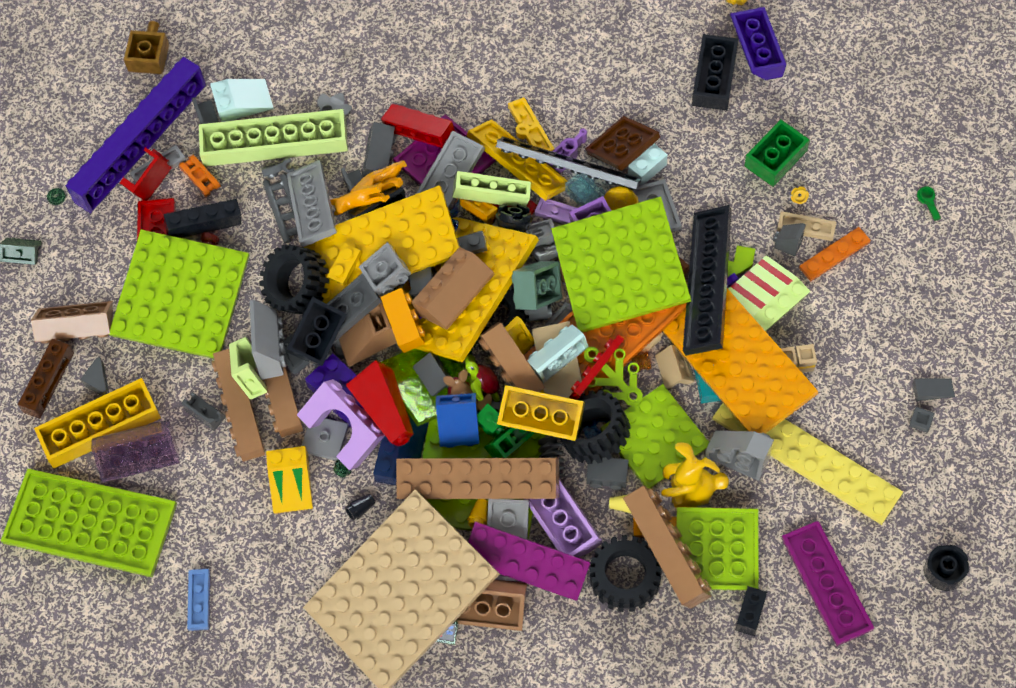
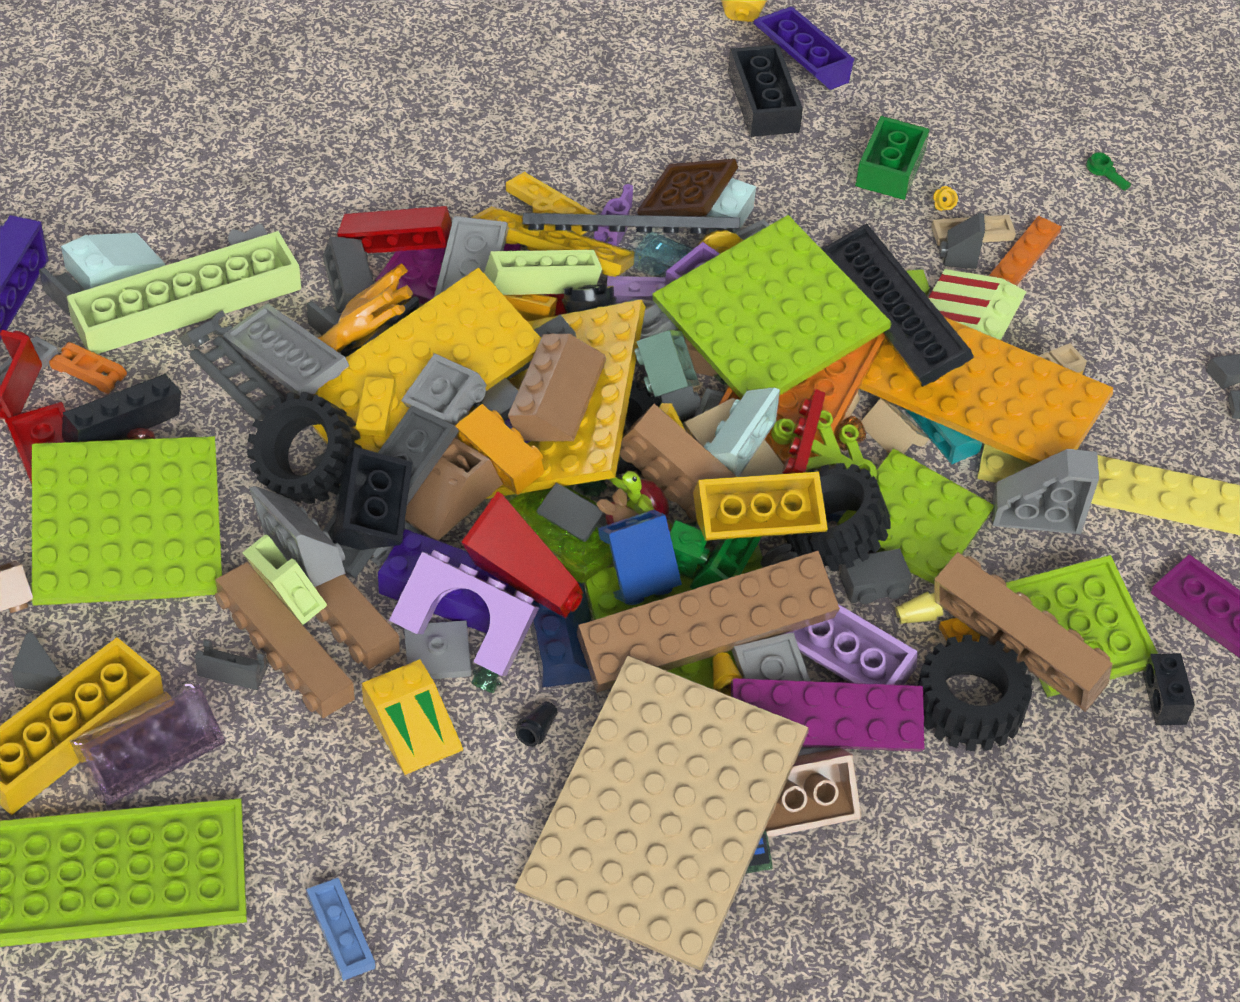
camera: 30 degrees left, 15 degrees down
(691, 483) = (1003, 545): yellow animal -> none

